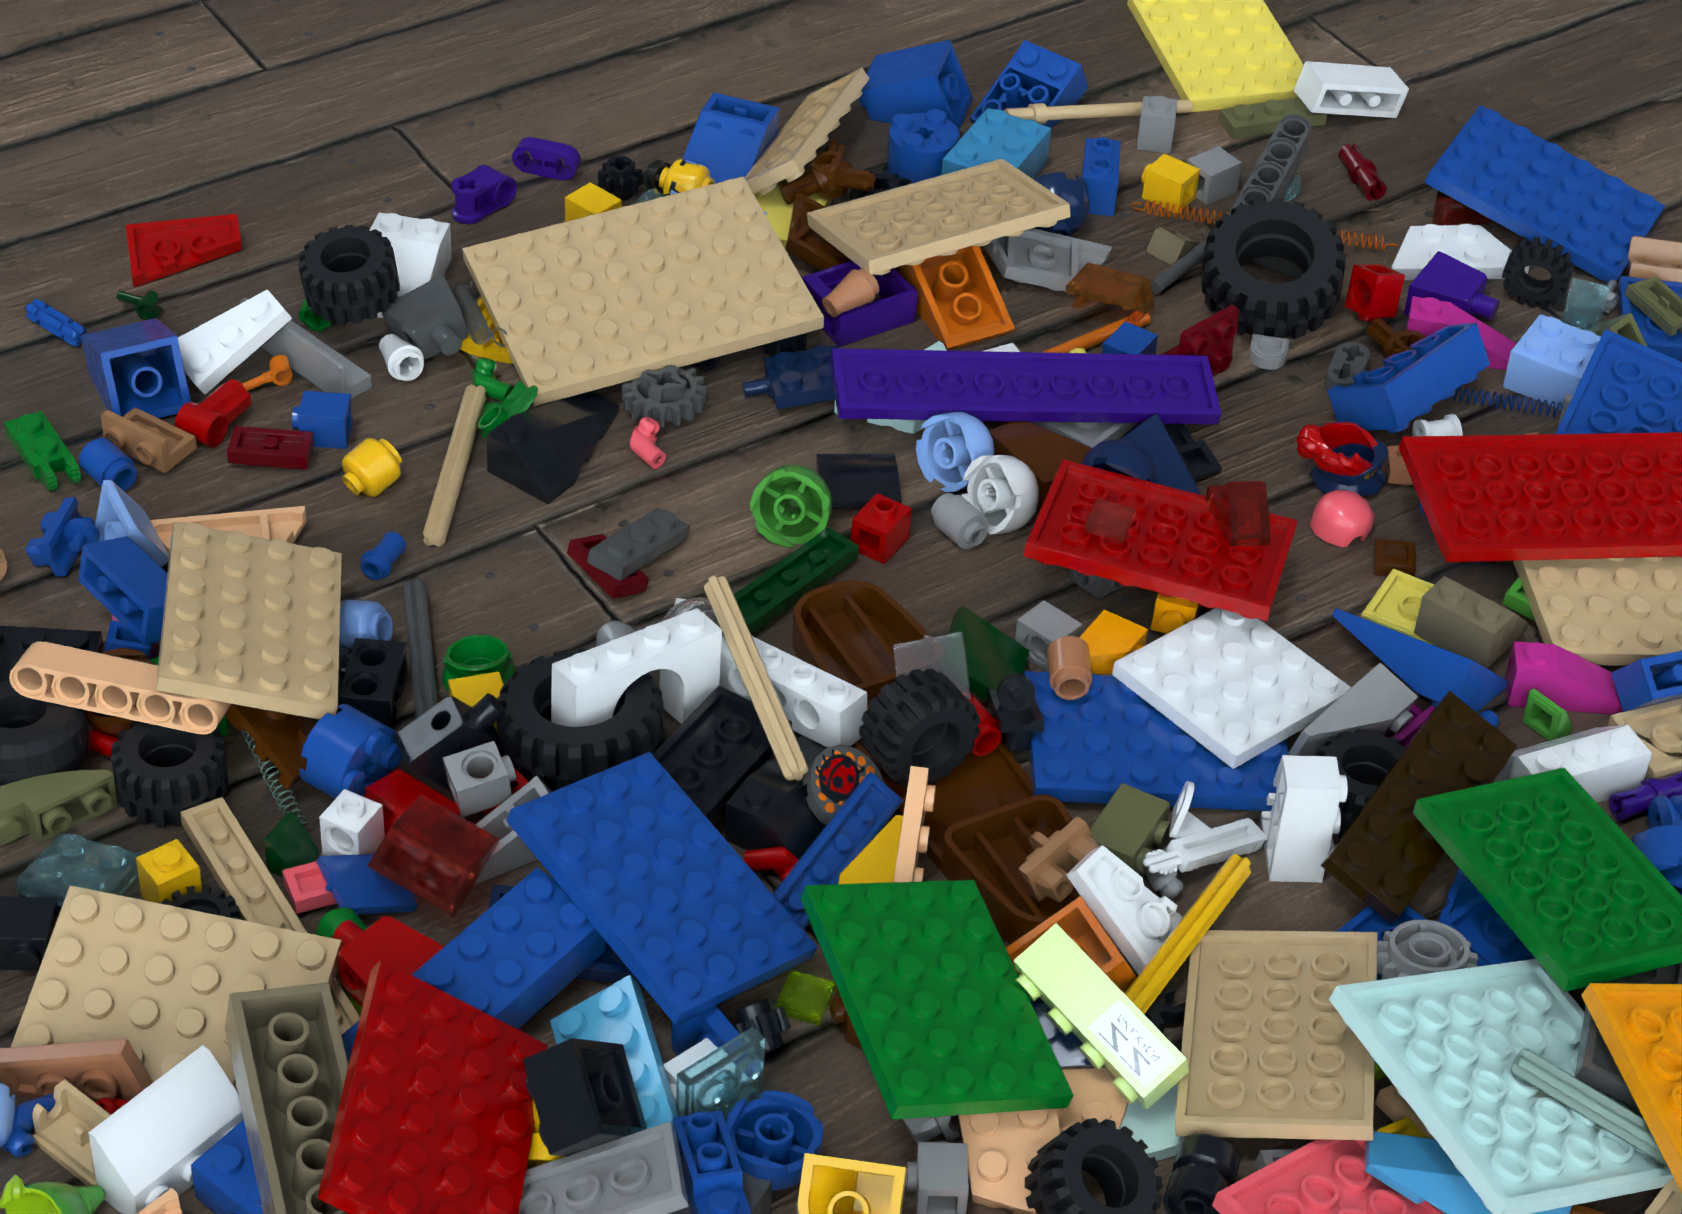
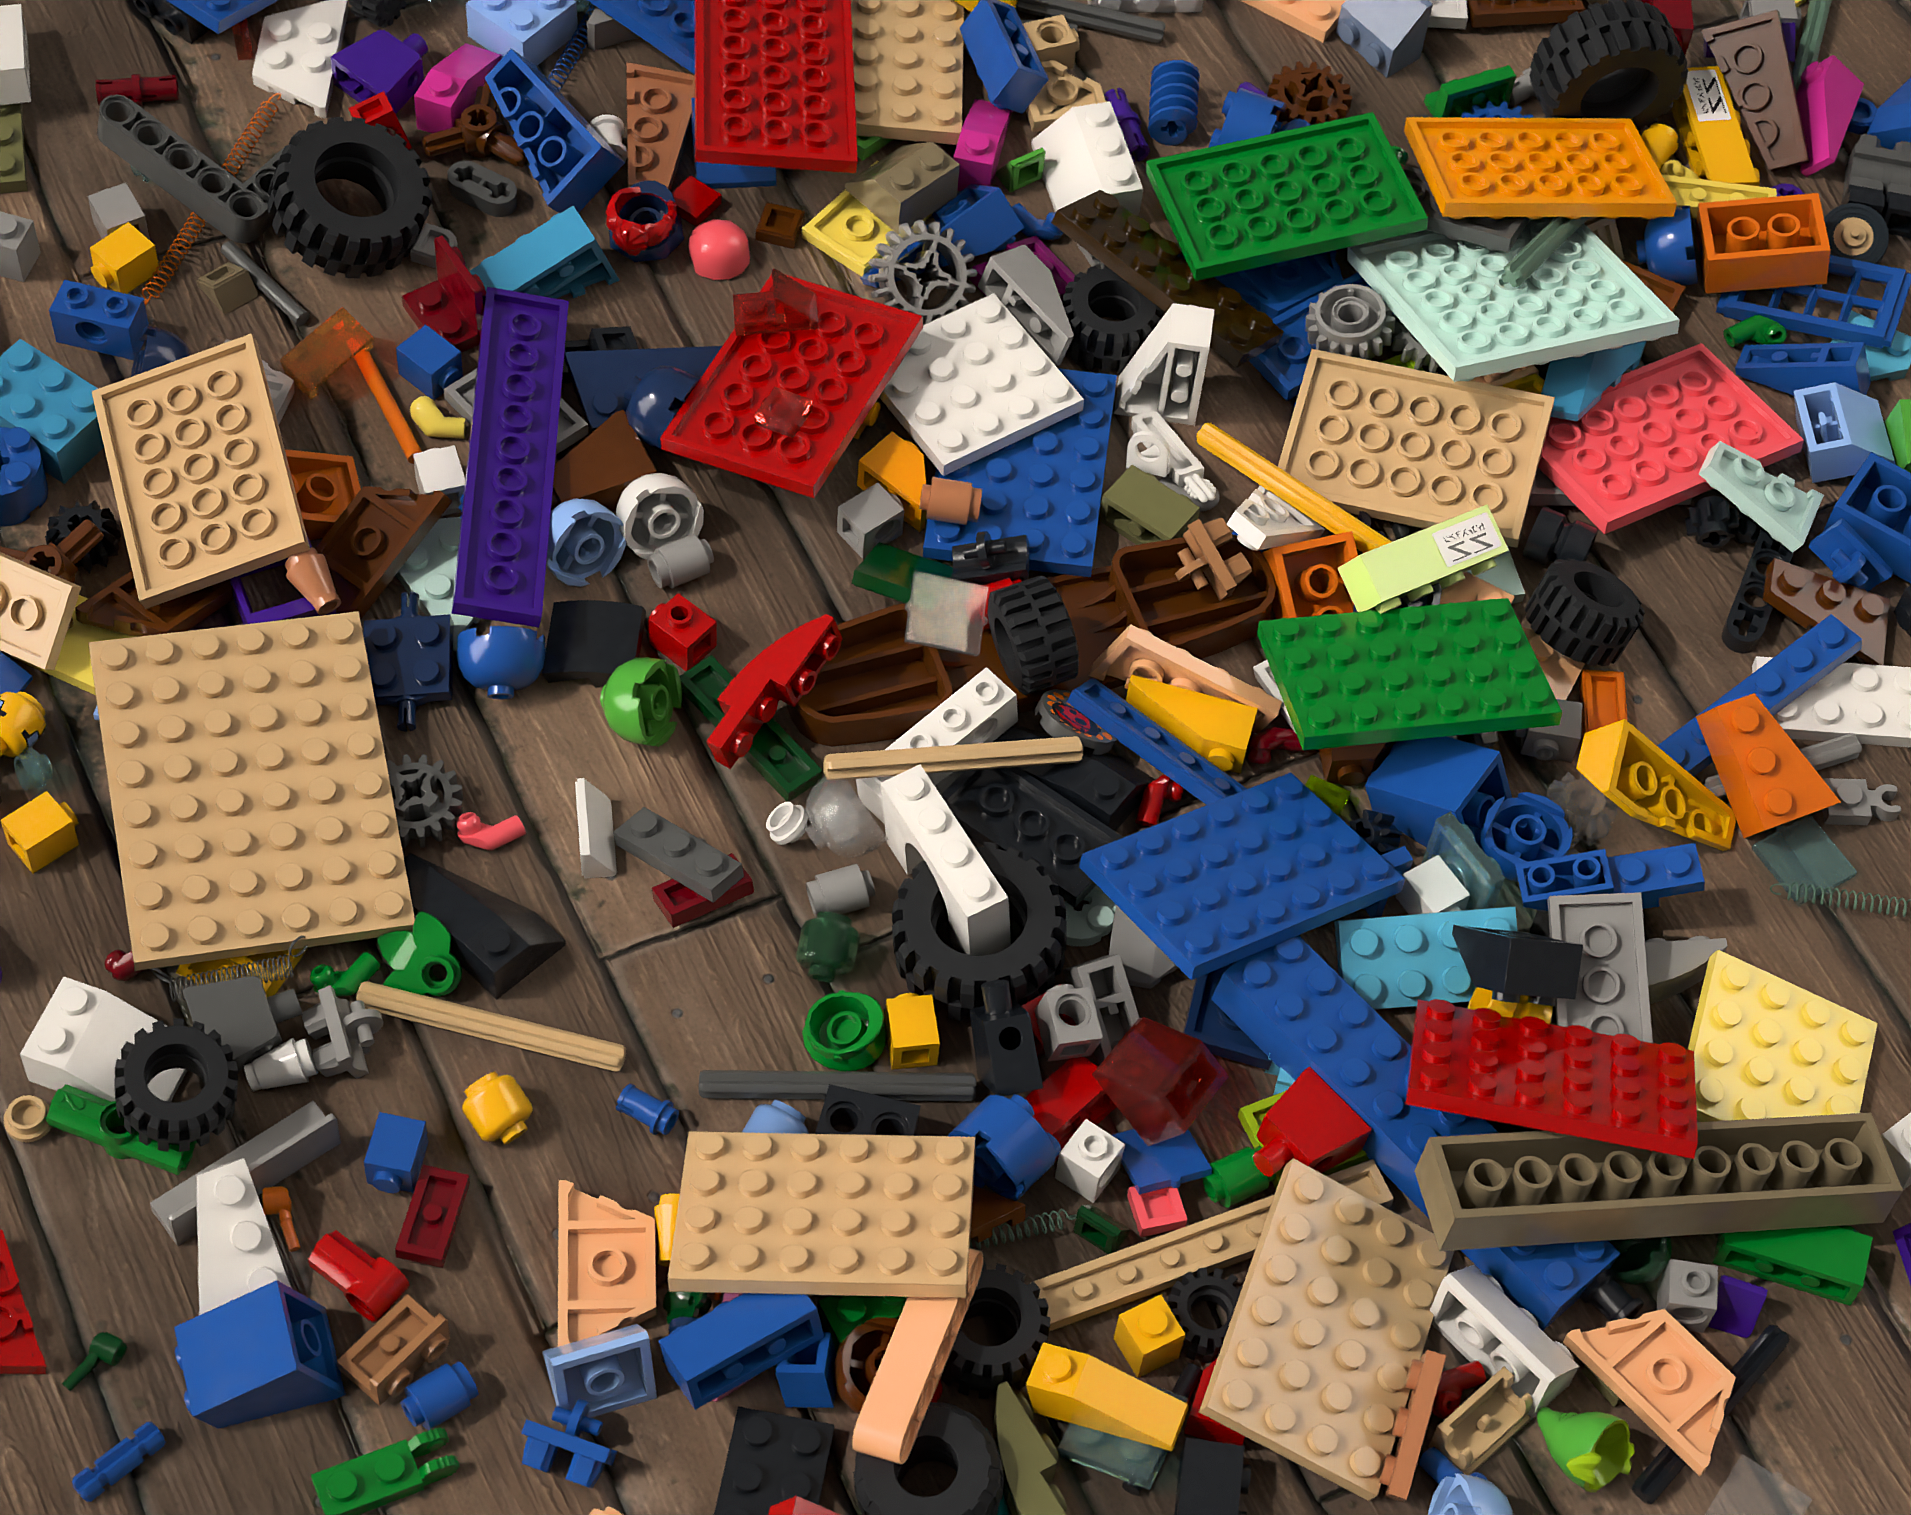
camera: 85 degrees left, 15 degrees up
(93, 829) = (1103, 1398): none -> yellow slope
(432, 380) = (349, 1030): none -> light grey hips
(558, 635) = (827, 946): none -> clear green head
(667, 490) = (595, 831): none -> white slope
(813, 419) = (501, 660): none -> blue cylinder
(816, 558) = (778, 673): none -> red slope
(828, 1068) = (1435, 777): none -> blue slope
(911, 333) = (376, 540): none -> reddish brown wing
(1264, 404) = (549, 260): none -> dark azure wedge
(1361, 636) = (927, 259): none -> light grey gear
(1395, 499) = (695, 200): none -> red tile

